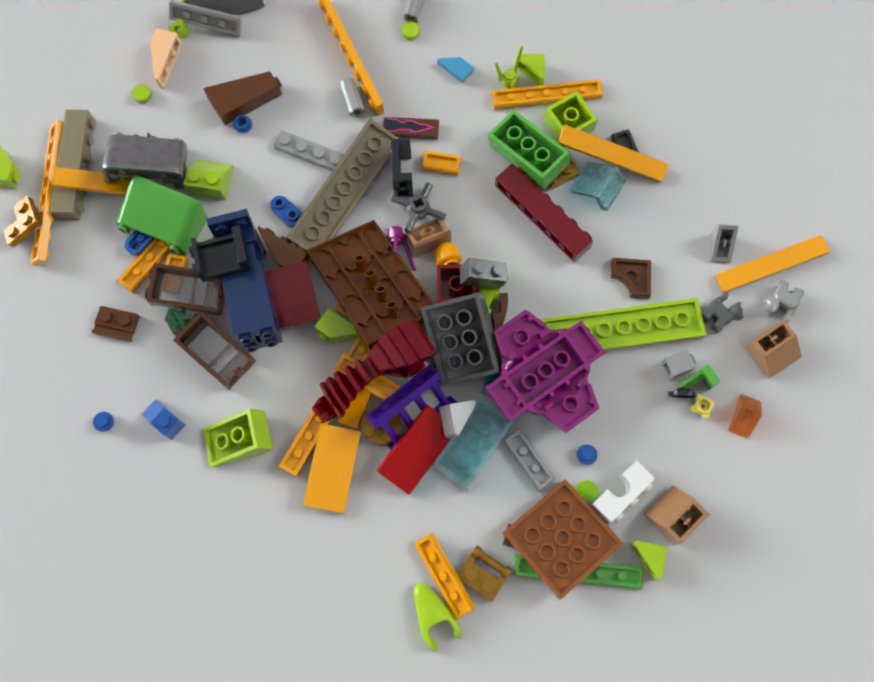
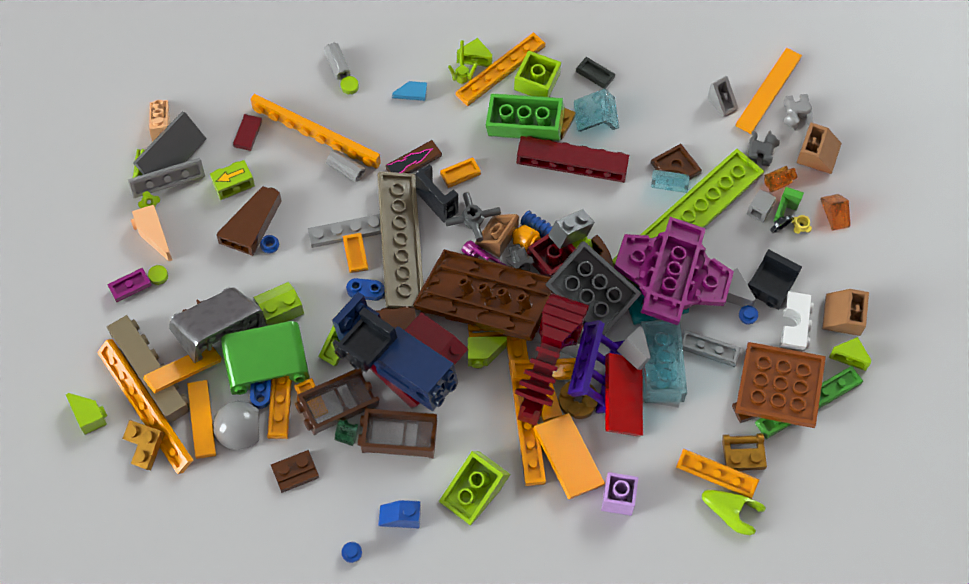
camera: 40 degrees left, 10 degrees down
(81, 232) = (201, 419): none -> light orange tile
(101, 255) = (237, 425): none -> light grey cylinder
(113, 87) = (129, 285): none -> magenta plate
(254, 51) = (232, 179): none -> lime brick
(299, 20) = (247, 132): none -> dark red tile
(301, 175) = (355, 253): none -> light orange tile
(344, 532) = (619, 493): none -> lavender head
(425, 270) = (519, 258): none -> dark grey hips
(465, 246) = (536, 223): none -> blue piece
(587, 490) = (769, 338): clear neon green plate -> none
(593, 427) = (739, 292): none -> light grey slope
(612, 153) = (591, 81): light orange tile -> none
(612, 288) = (670, 181): none -> clear light blue slope
(634, 439) = (774, 279): none -> black panel
(714, 351) = (780, 178): none -> clear orange hips

